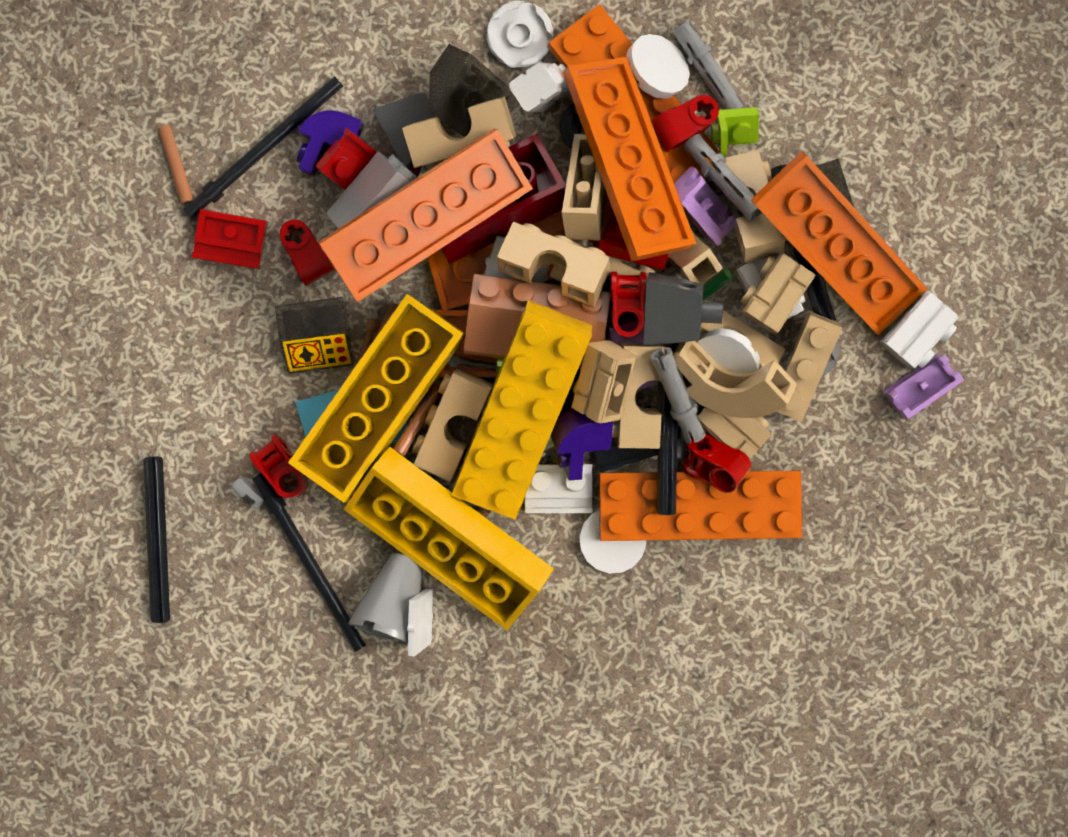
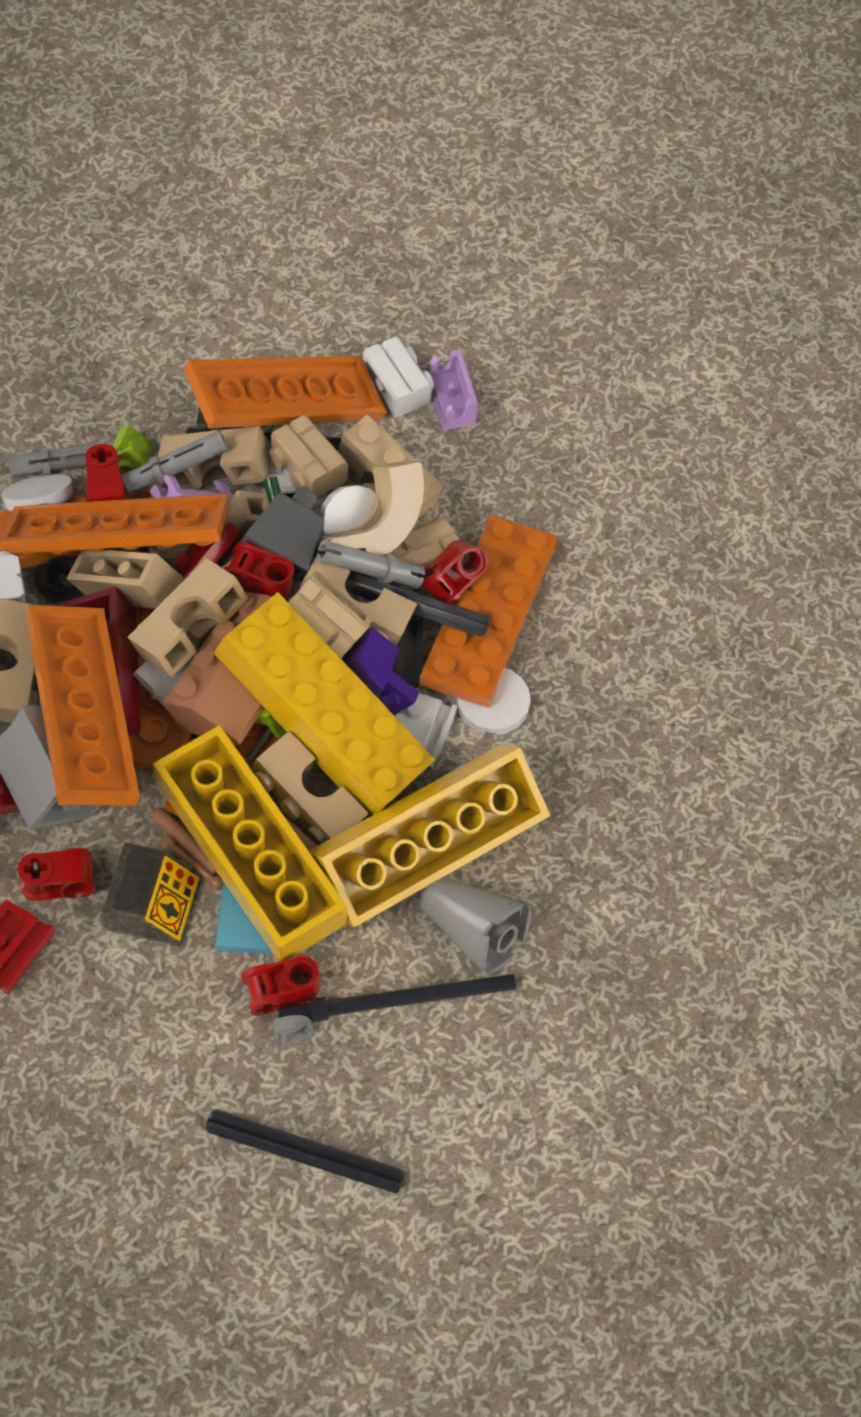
camera: 70 degrees left, 30 degrees down
(420, 622) = (497, 886): white piece -> none

